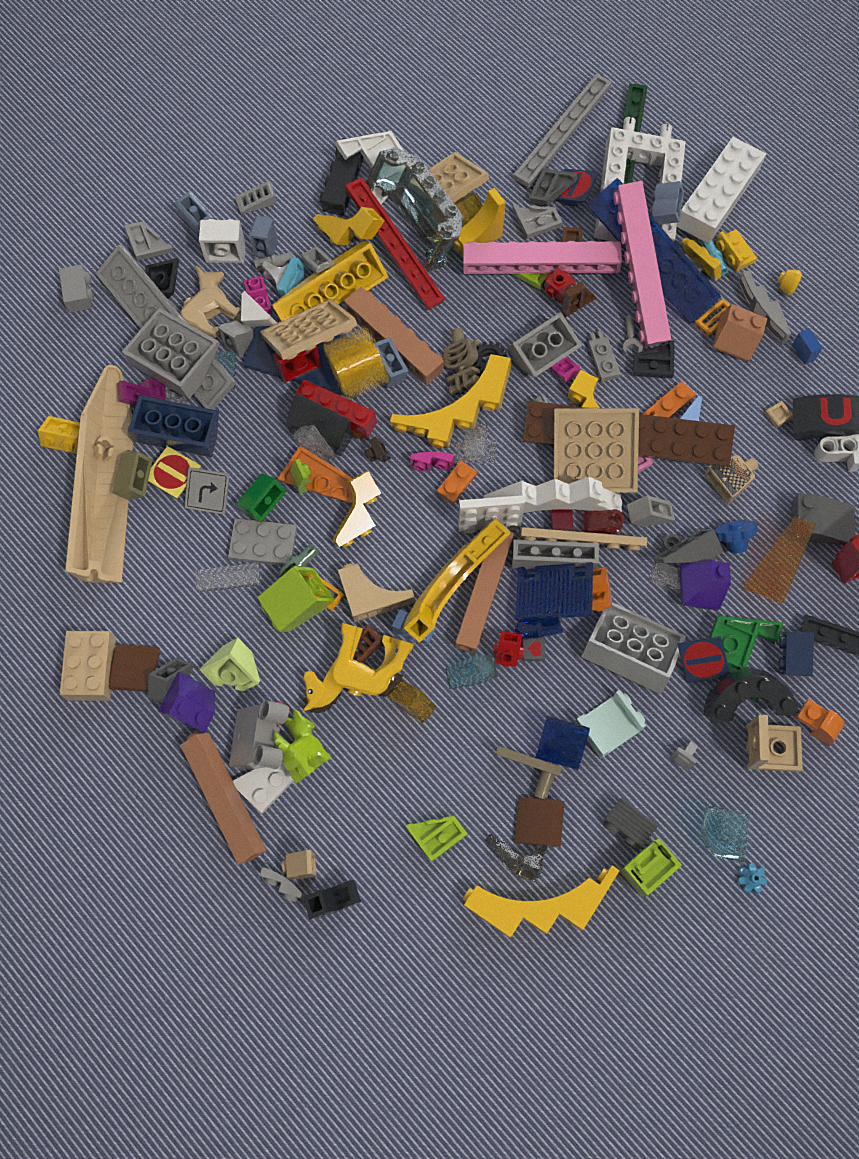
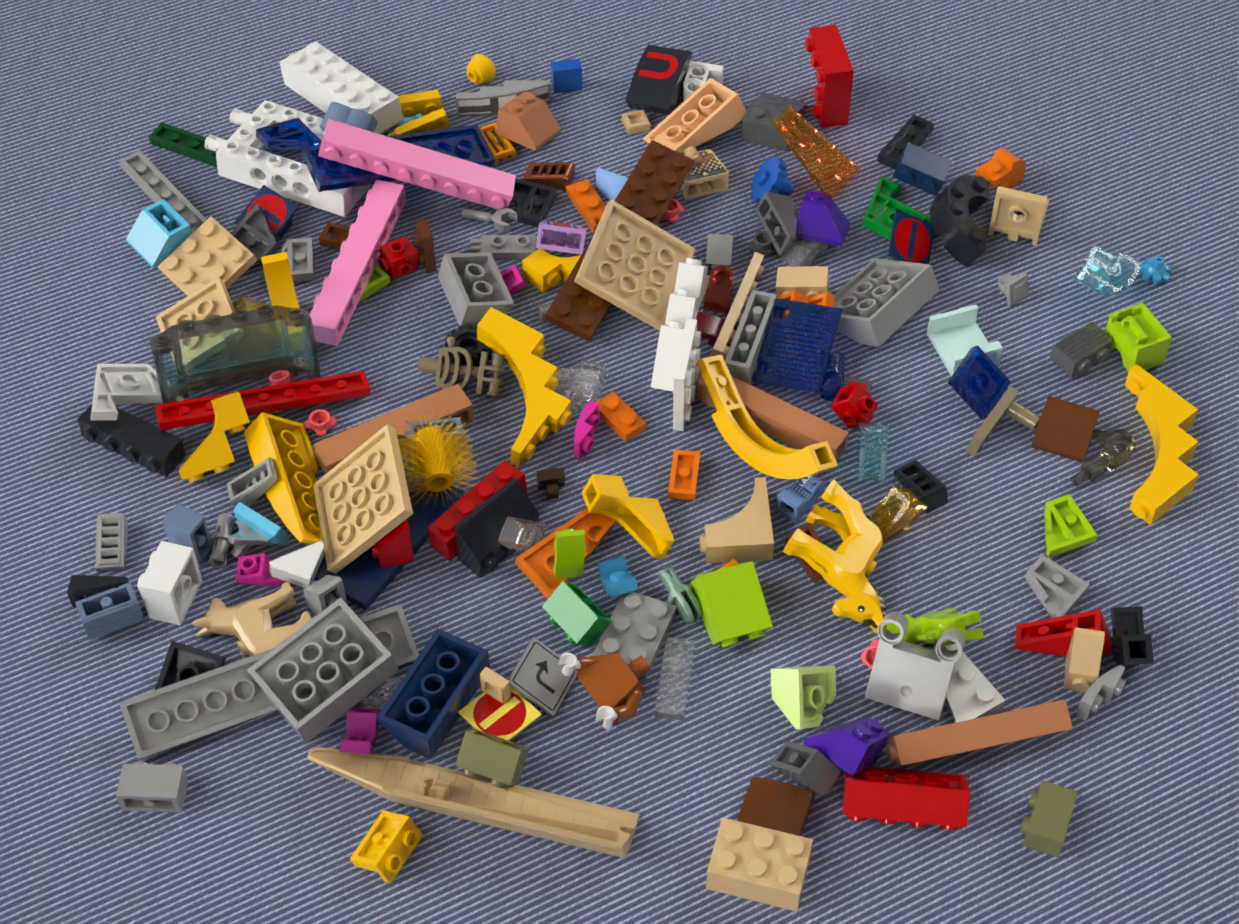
camera: 75 degrees left, 20 degrees down
(145, 242) = (112, 686): light grey wing -> none
(162, 762) = (907, 796): none -> red slope
(164, 859) = (1049, 819): none -> olive brick
(184, 460) = (495, 685): none -> tan tile
(206, 536) = (609, 683): none -> dark orange torso
(212, 198) = (86, 585): none -> black slope
(300, 518) = (615, 576): none -> dark azure bracket
(327, 849) = (1055, 634): none -> red slope
(374, 836) = (1055, 586): none -> light grey wing
(392, 282) = (320, 422): none -> coral plate
(410, 540) = (684, 475): none -> orange plate
(420, 248) = (281, 377): none -> coral plate
(440, 726) = (929, 490): none -> black slope
(514, 164) = (205, 256): none -> tan plate
(531, 125) = (158, 233): none -> medium azure slope
(612, 387) = (560, 237): none -> lavender torso
(627, 584) = (804, 279): none -> tan brick
(642, 165) = (287, 136): none -> clear blue wing
(687, 470) = (673, 211): none -> coral plate
(692, 380) = (556, 174): none -> copper slope
(790, 459) = (699, 118): none -> light nougat slope

